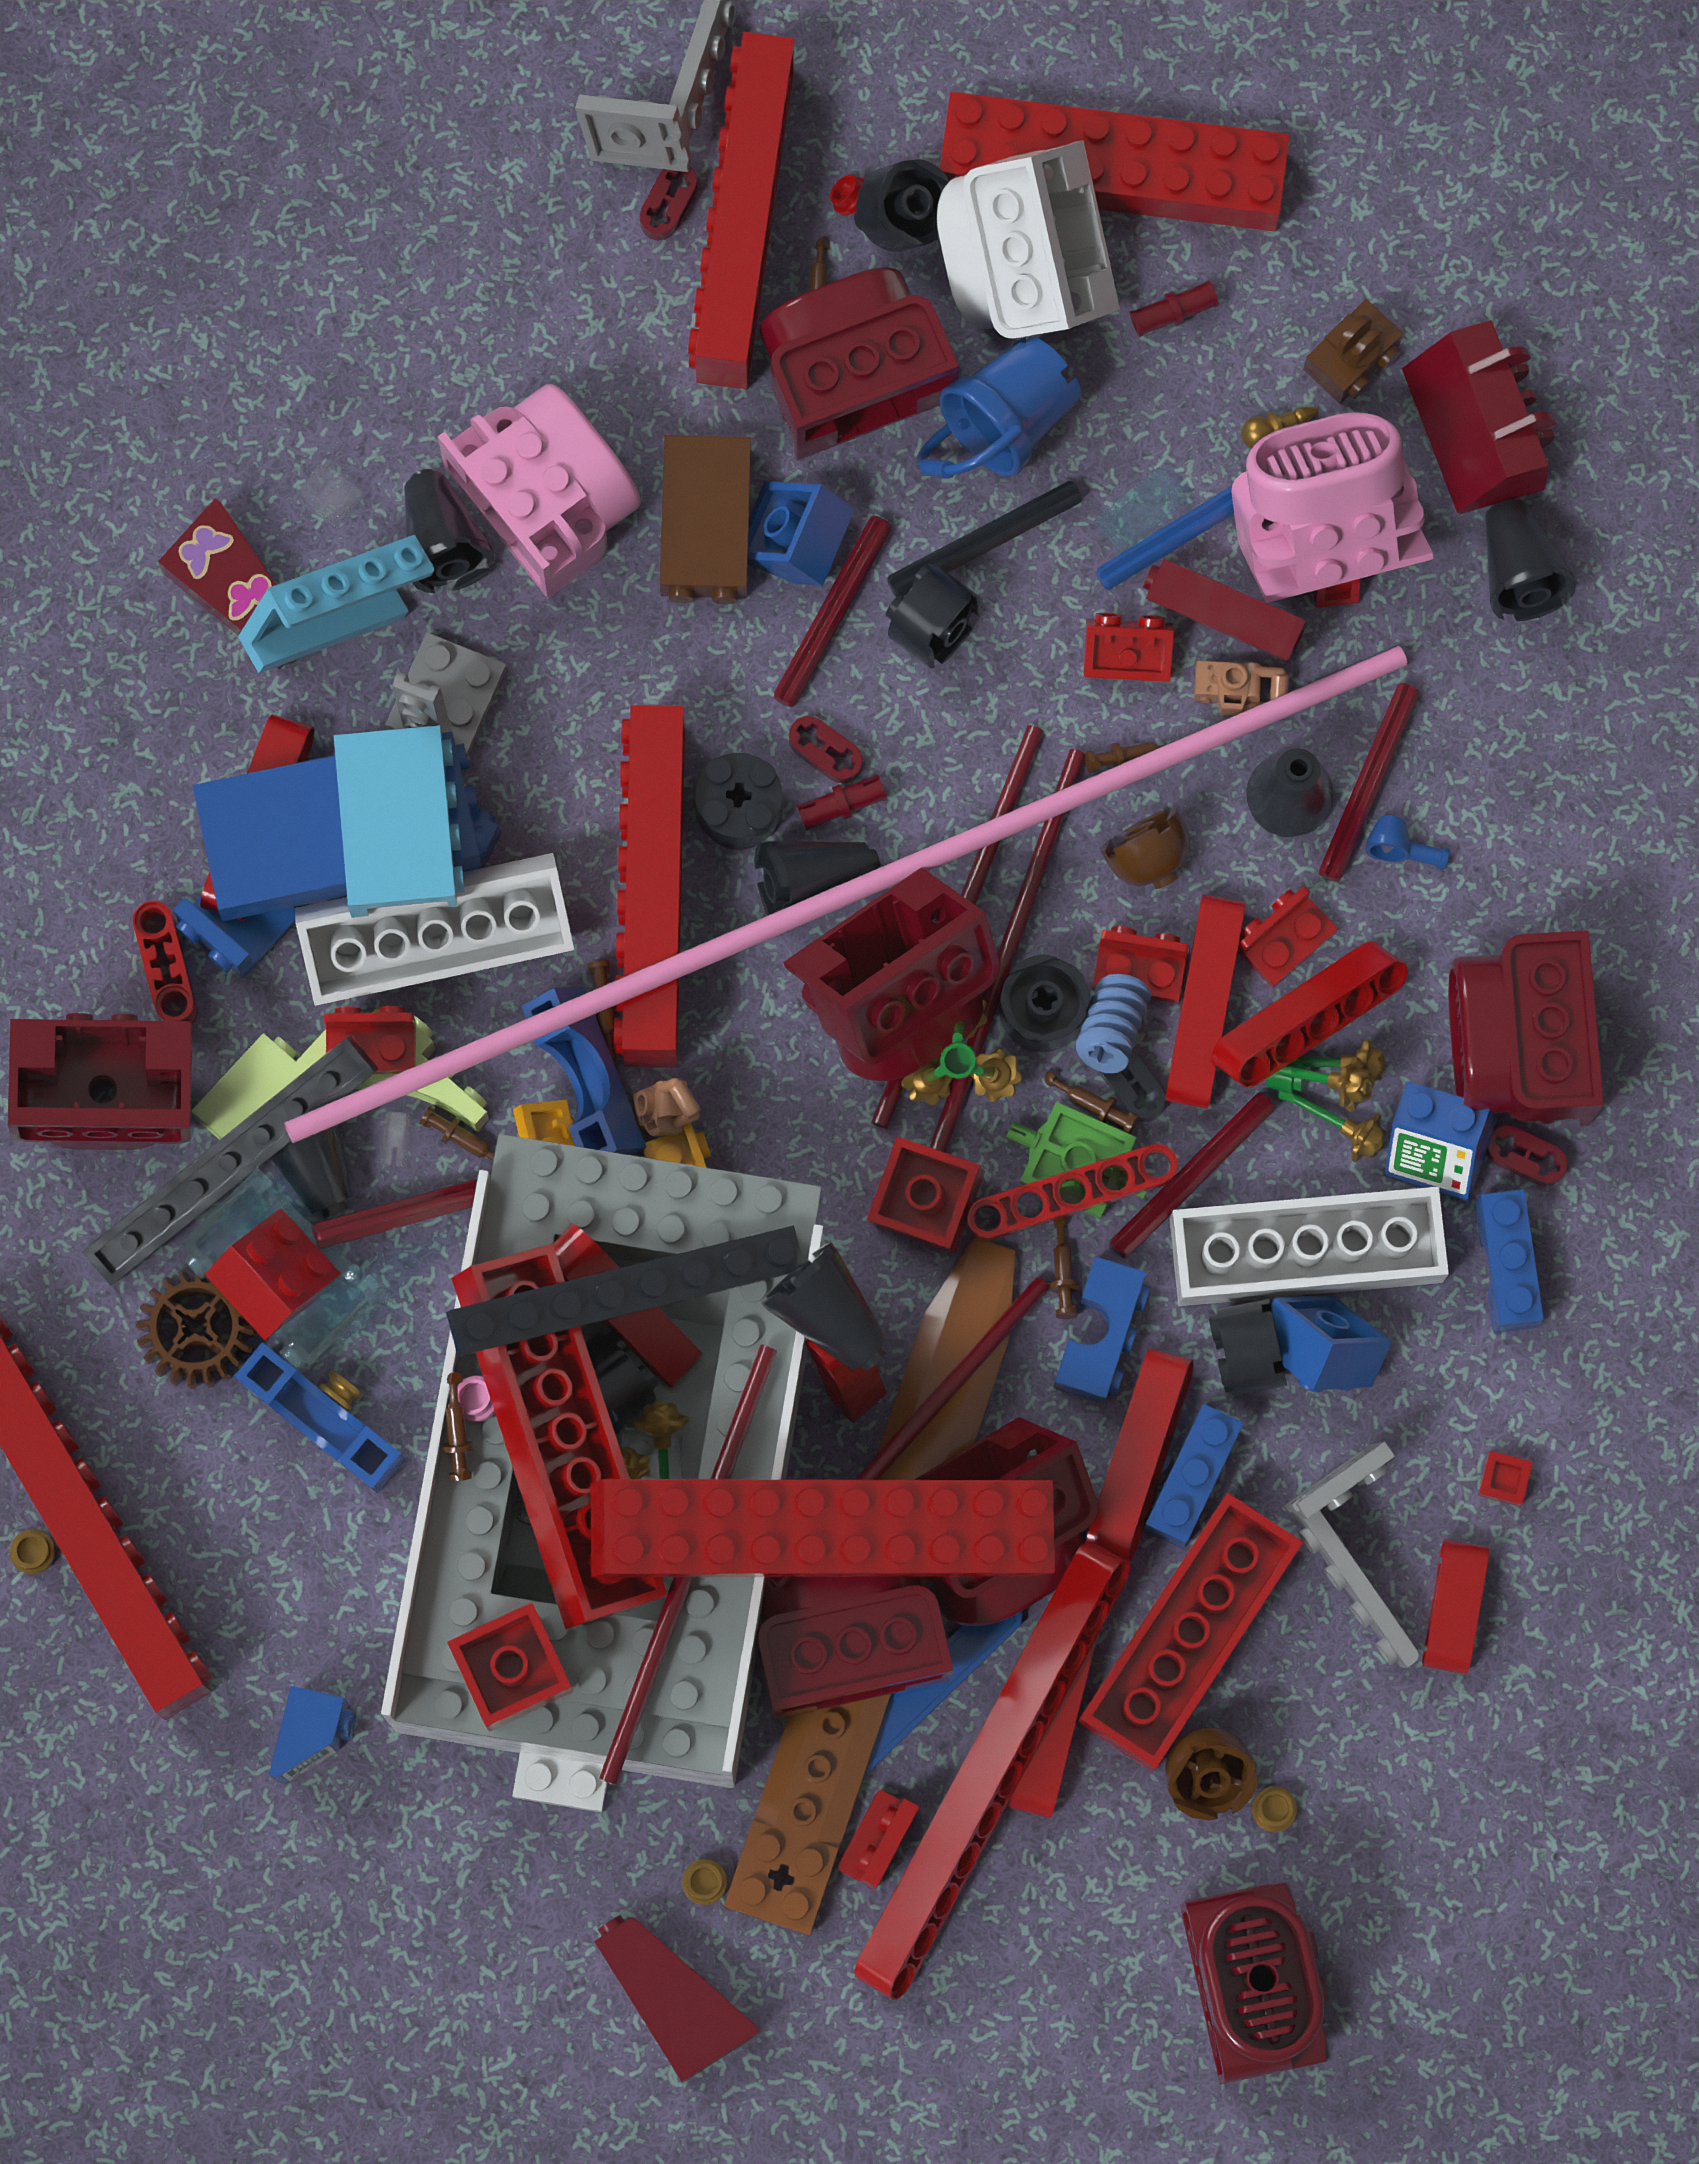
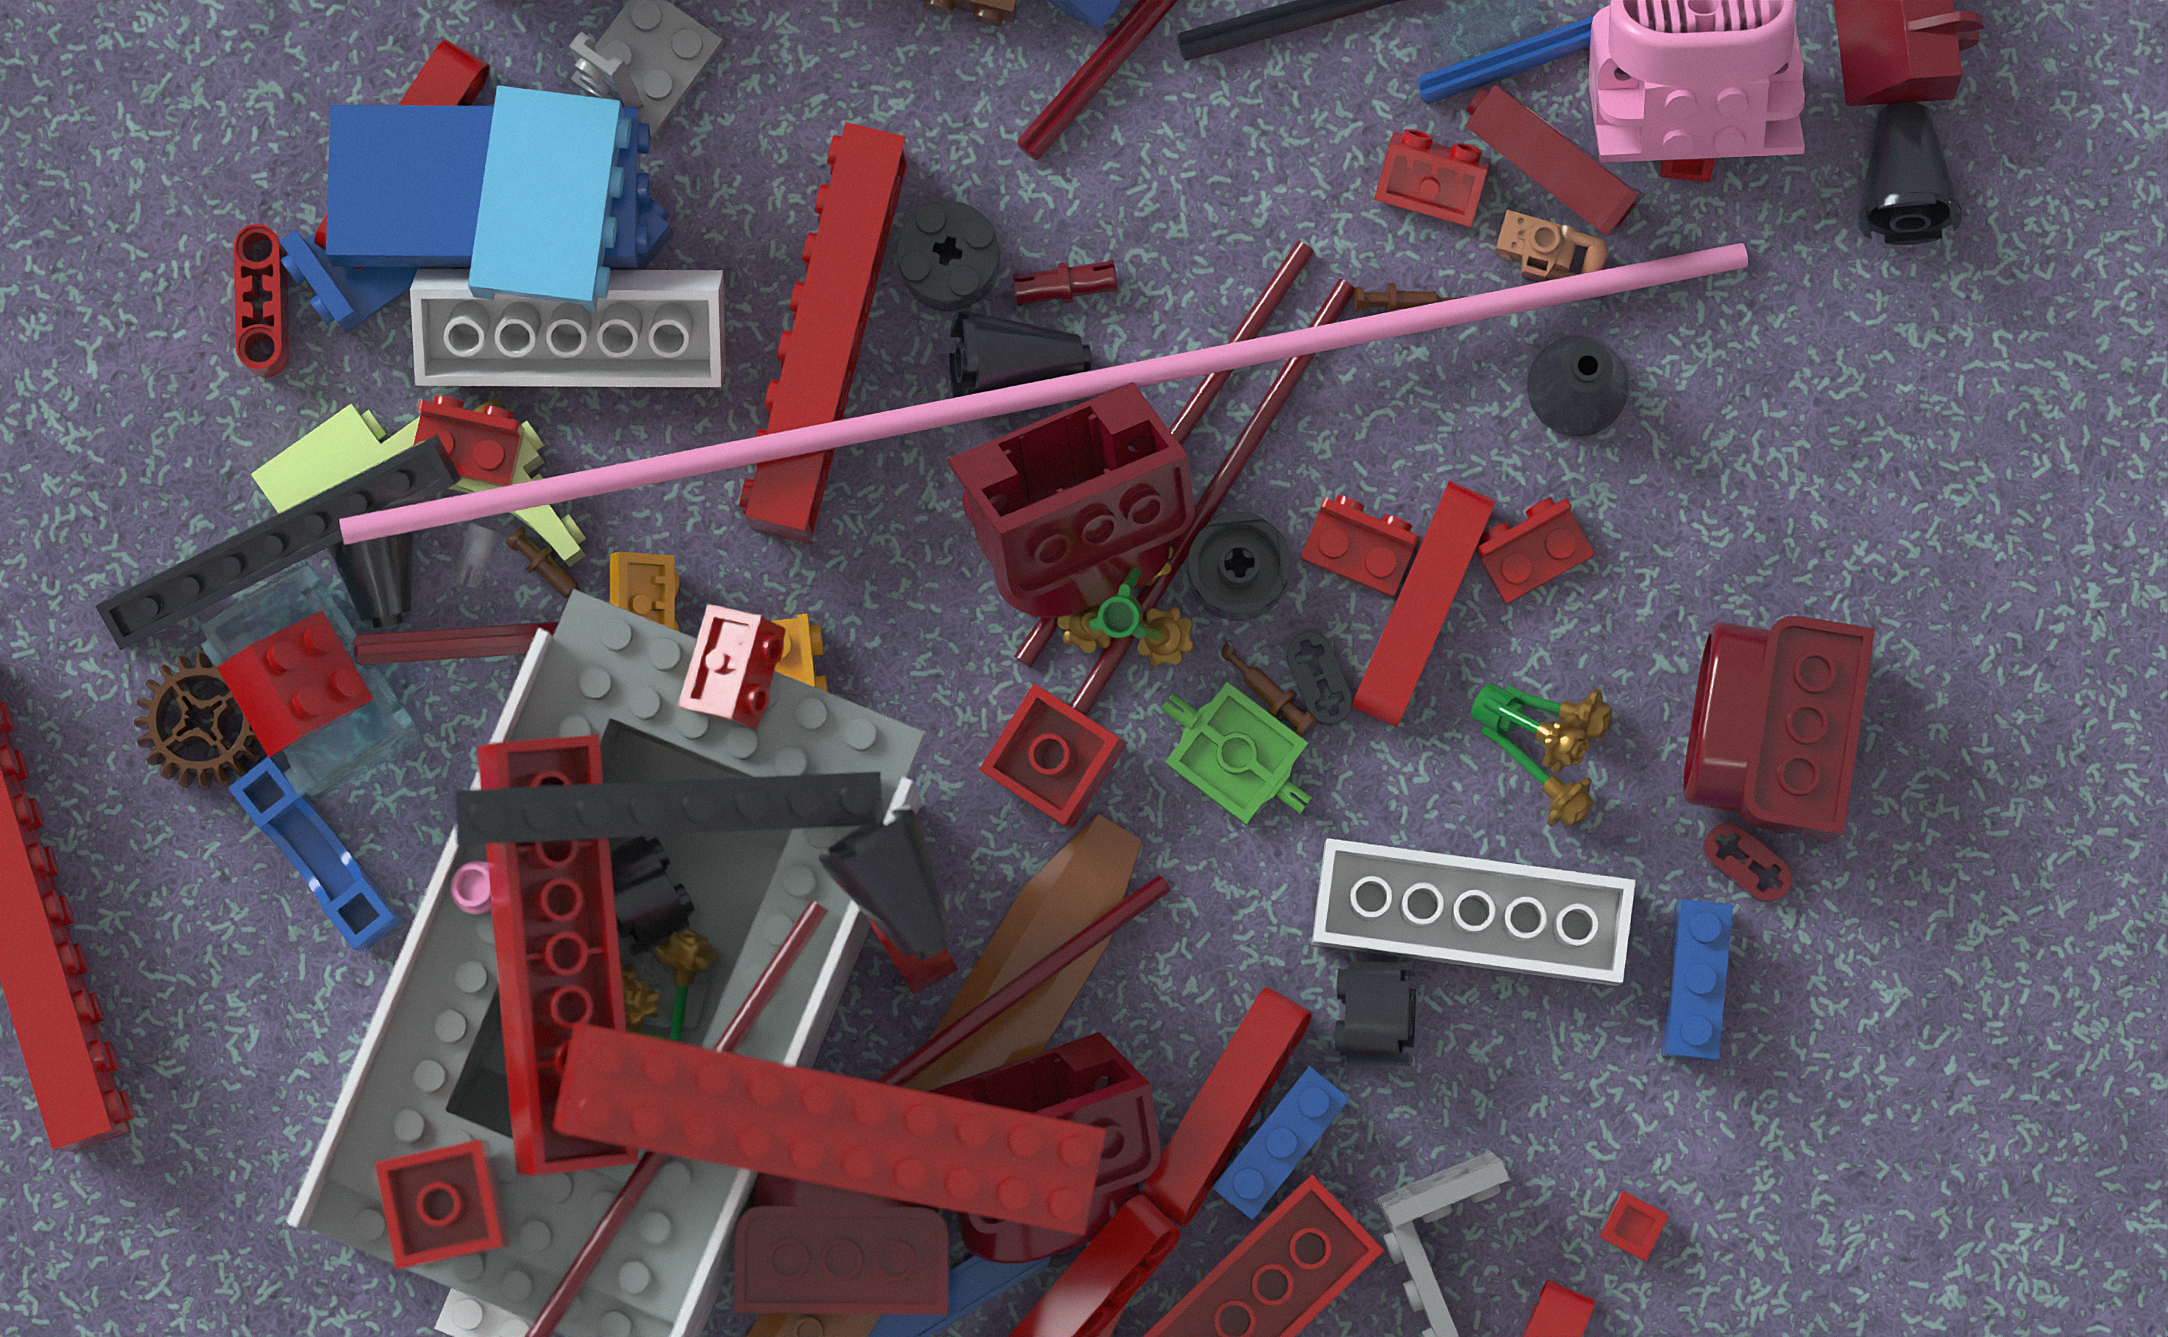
camera: 20 degrees right, 5 degrees up
(62, 1063) = (111, 393): dark red brick -> none
(310, 1732) = (223, 1205): blue slope -> none
(340, 1390) = (348, 827): pearl gold bush -> none
(456, 1428) = (445, 921): reddish brown piece -> none
(603, 1110) = (714, 552): blue arch -> none
(606, 1017) = (746, 417): reddish brown piece -> none
(646, 1333) = (703, 857): red beam -> none
(649, 1165) = (733, 666): none -> bracket
(665, 1107) = (782, 591): nougat piece -> none
(832, 742) = (1070, 209): dark red beam -> none
(933, 615) = (1217, 92): black brick -> none
(1063, 1274) = (1188, 888): reddish brown piece -> none
(1088, 1176) = (1193, 784): red beam -> none
(1092, 1369) = (1197, 995): blue arch -> none
(1113, 1022) = (1311, 606): medium blue piece -> none
(1150, 850) = (1400, 417): reddish brown cylinder -> none
(1191, 1175) = (1362, 799): dark red axle -> none
(1309, 1014) = (1537, 647): red beam -> none
(1327, 1343) = (1467, 1028): blue slope -> none
(1368, 782) = (1671, 392): dark red axle -> none
(1393, 832) = (1684, 458): blue bar -> none
(1438, 1141) = (1649, 826): blue slope -> none

